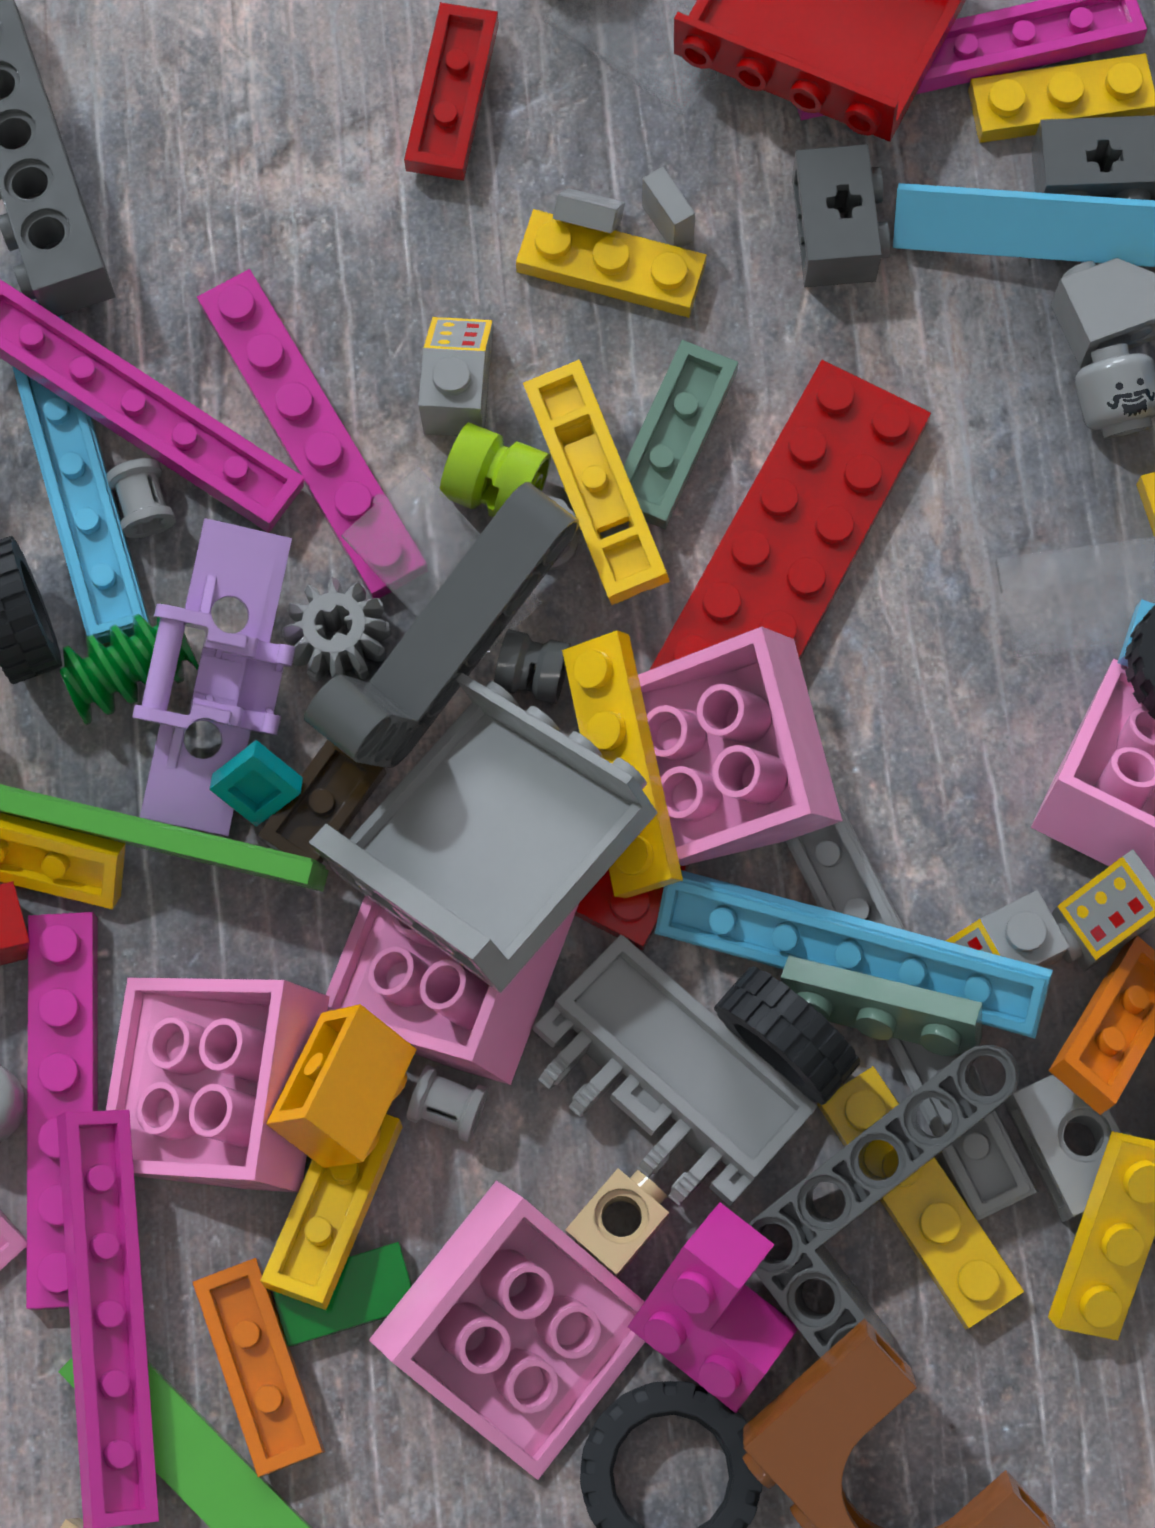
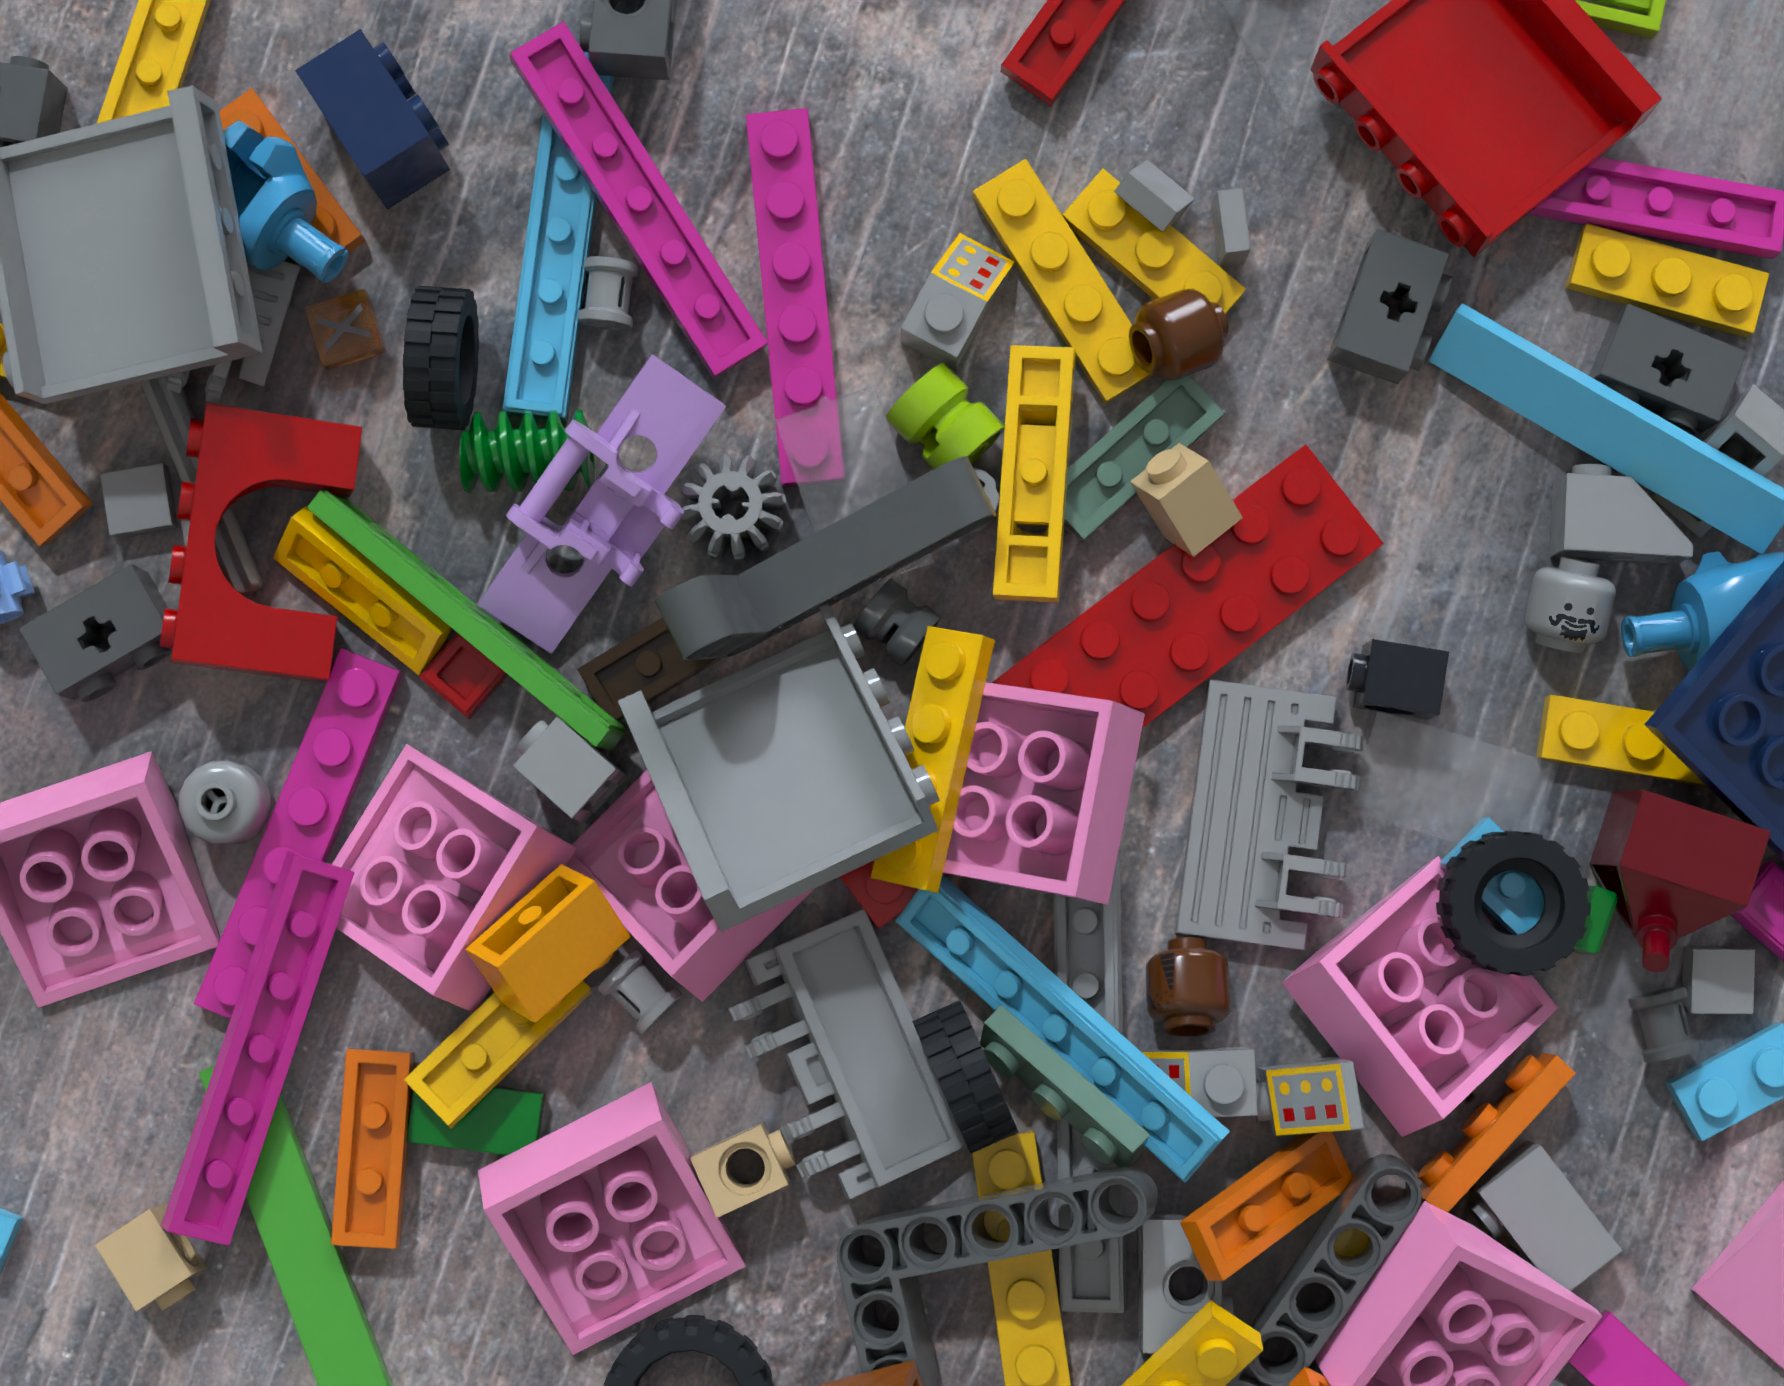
camera: 25 degrees right, 10 degrees up
(155, 890) = (463, 676): none -> red tile
(256, 783) = (594, 622): teal plate -> none
(291, 921) = (568, 769): none -> light grey brick
(545, 317) = (1062, 278): none -> yellow plate
(666, 310) = (1178, 334): none -> reddish brown head
(707, 1315) = (784, 1293): dark pink brick -> none
(740, 445) = (1186, 498): none -> tan brick
(931, 697) = (1250, 814): none -> light grey hinge
(950, 870) = (1188, 988): none -> reddish brown head
(1002, 519) = (1398, 679): none -> black brick

